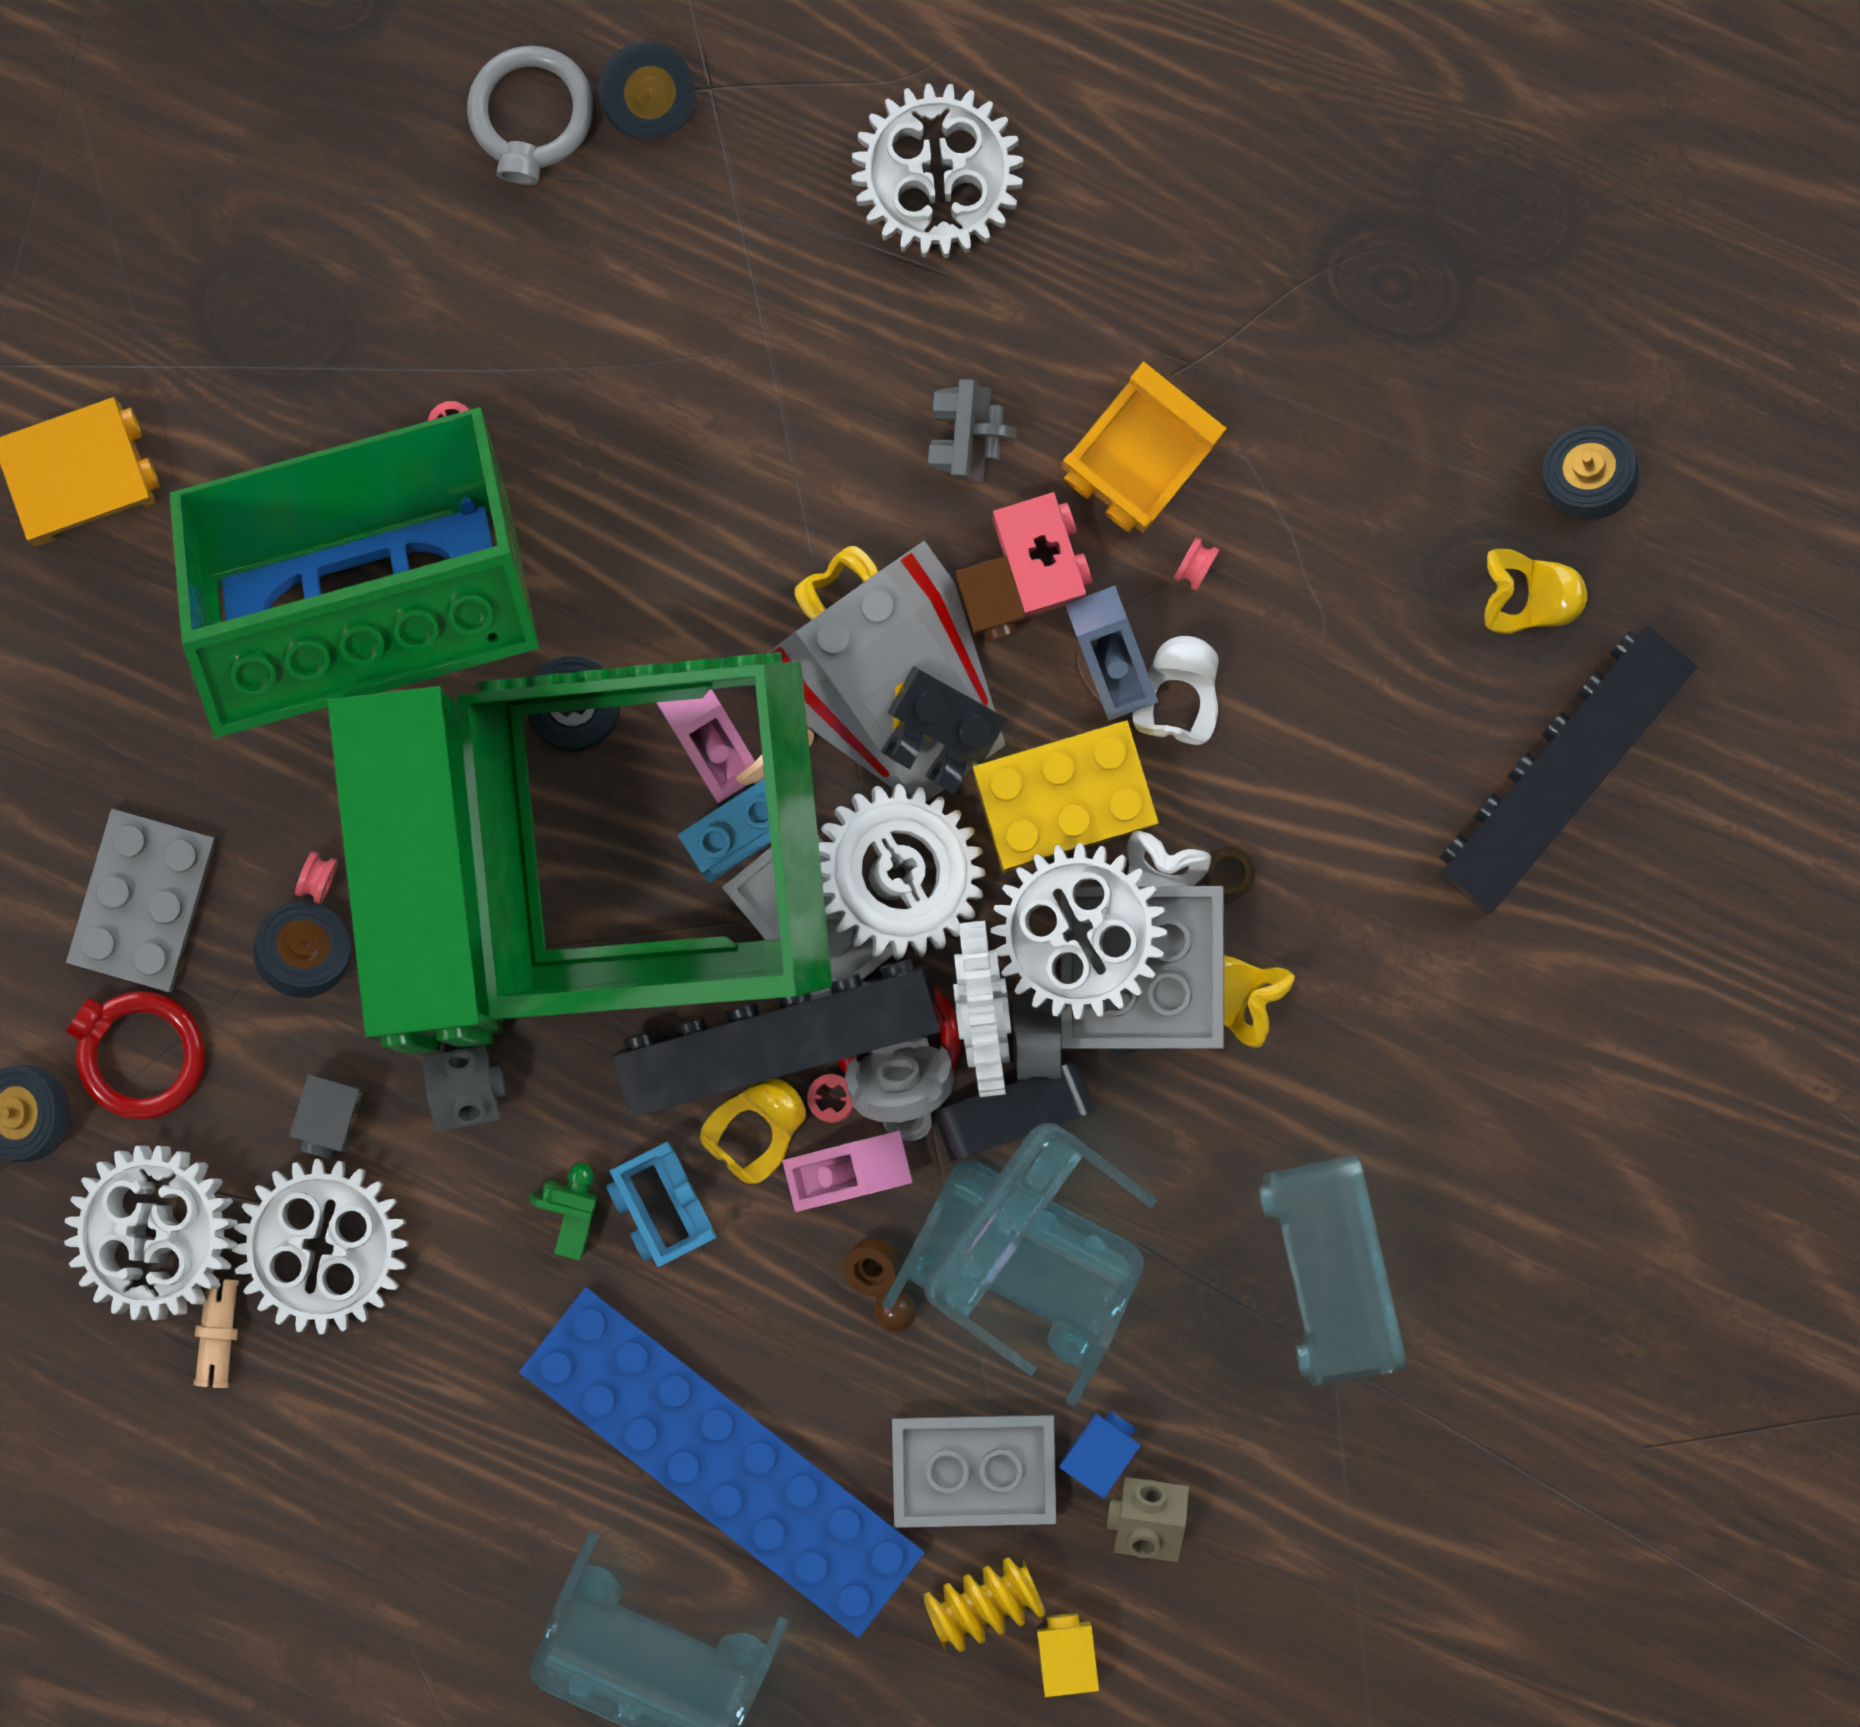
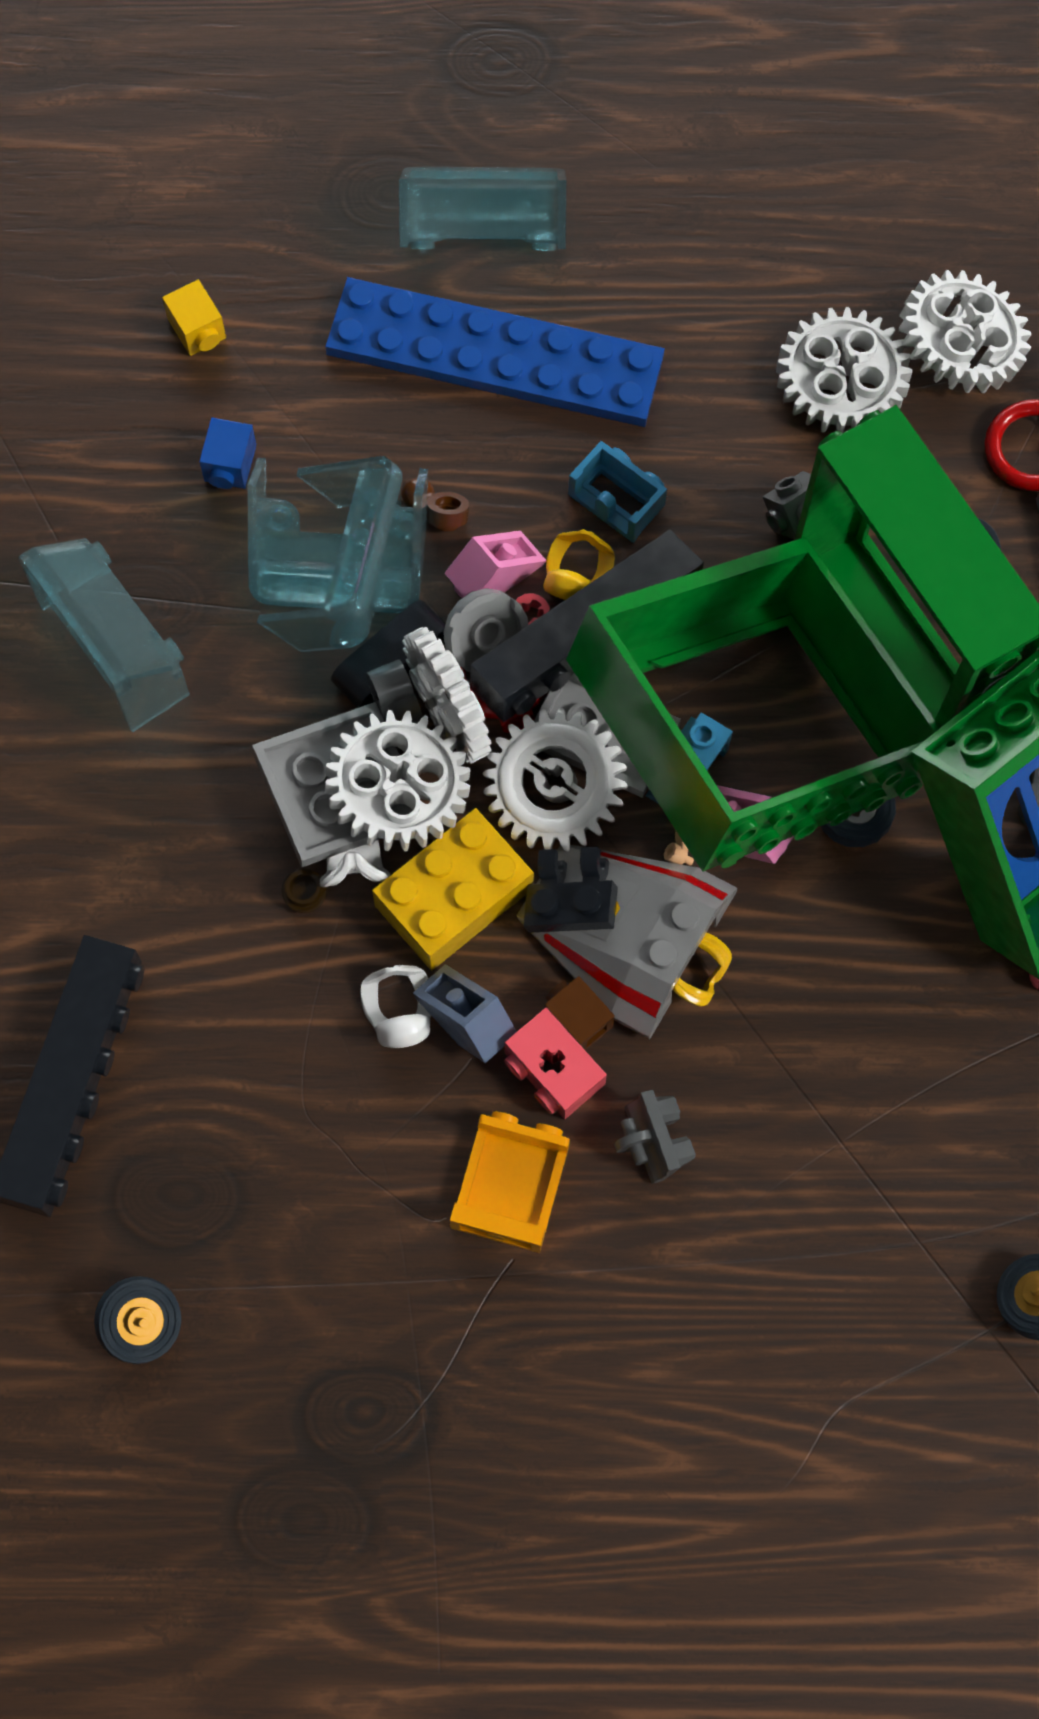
camera: 160 degrees right, 15 degrees down
(216, 1335) = (884, 290): light nougat pin -> none
(575, 1203) = (683, 467): green piece -> none
(891, 175) = (813, 1315): white gear -> none
(974, 1471) = (314, 410): light grey plate -> none
(983, 1605) = (266, 324): yellow piece -> none
(1149, 1519) = (160, 418): dark tan brick -> none
(1196, 563) = (428, 1111): coral bush -> none
(1243, 987) = (262, 816): yellow piece -> none
(1554, 593) = (130, 1209): yellow piece -> none

